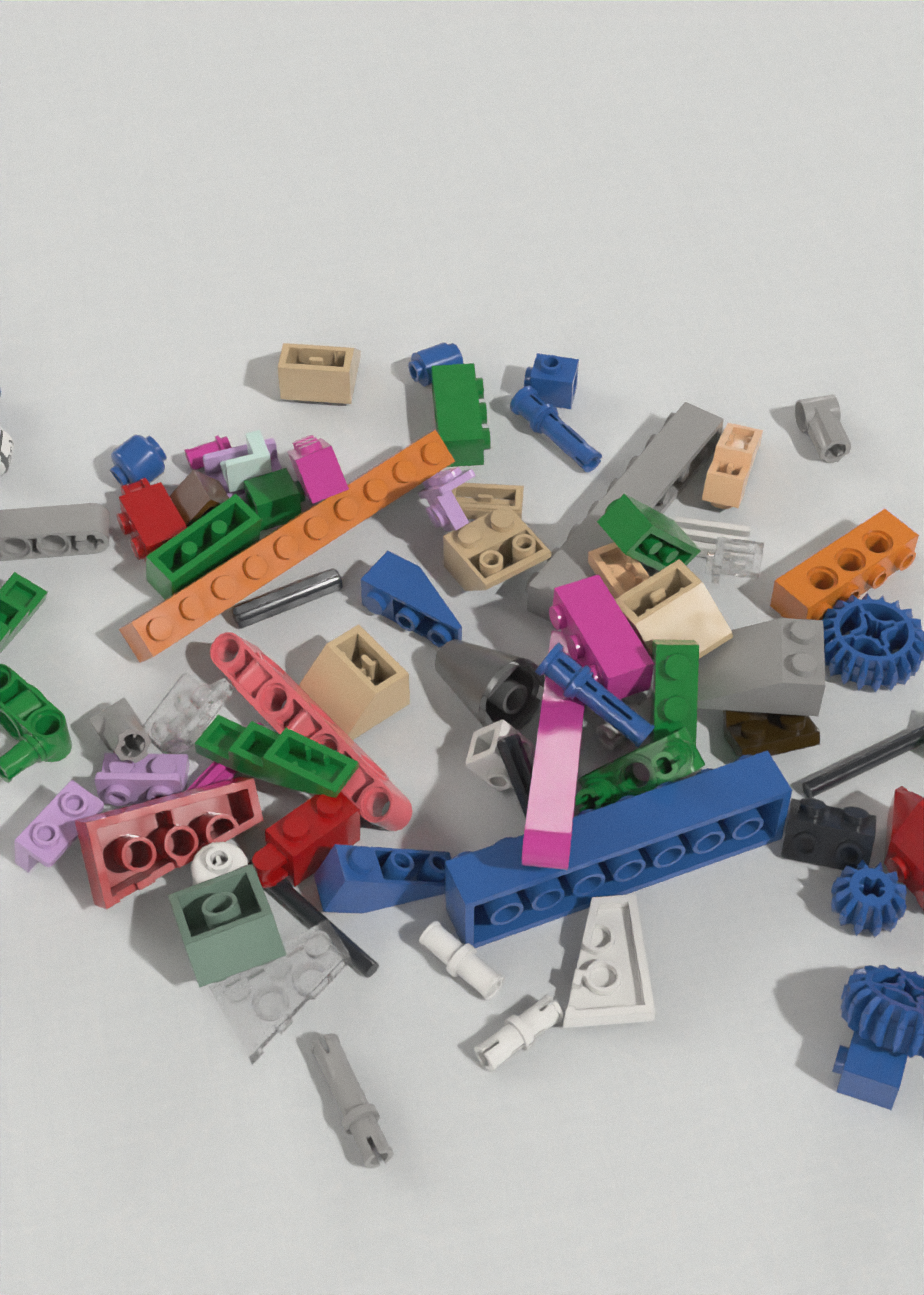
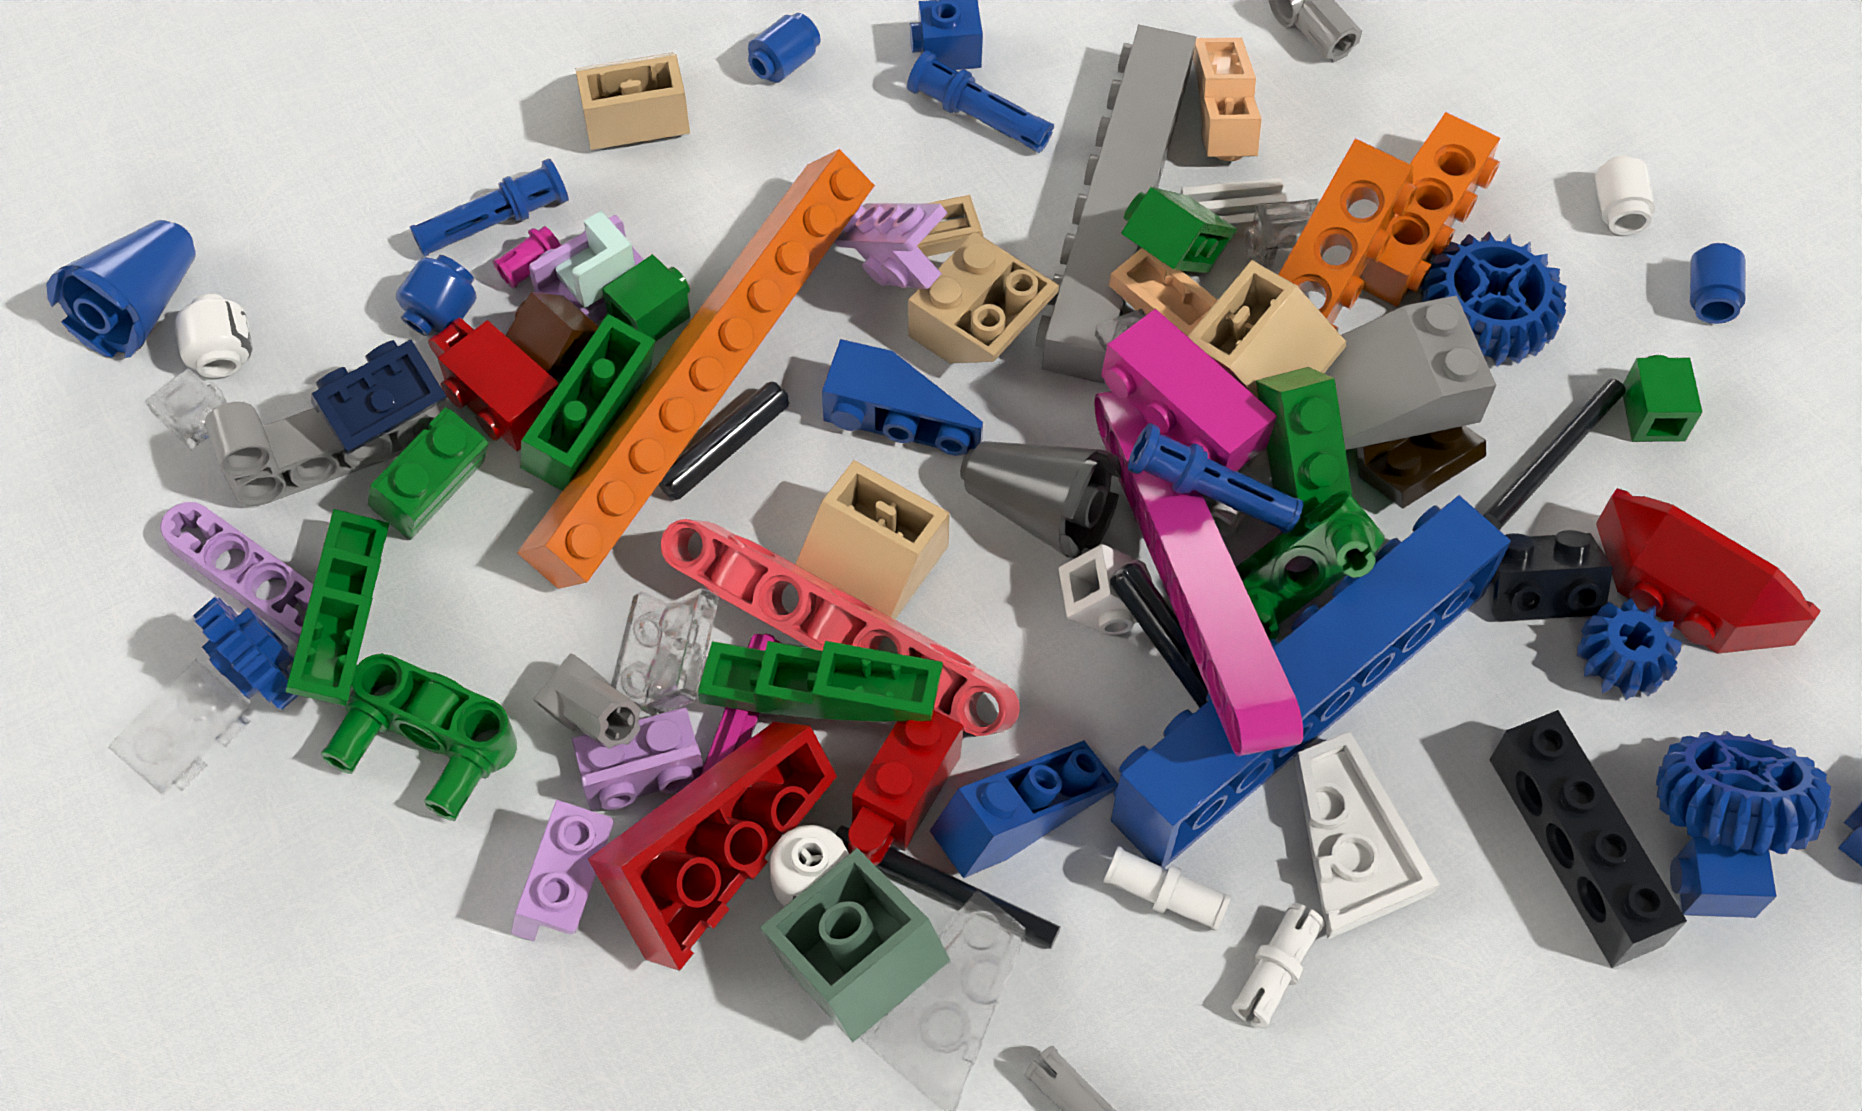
camera: 20 degrees left, 10 degrees up
(67, 506) = (377, 395): none -> dark blue bracket
(83, 566) = (427, 473): none -> green brick
(214, 416) = (512, 199): none -> blue pin
(317, 468) = (704, 248): dark pink brick -> none
(459, 413) = (844, 110): green brick -> none
(759, 557) = (1361, 175): none -> orange brick
(777, 1014) = (1586, 839): none -> black brick

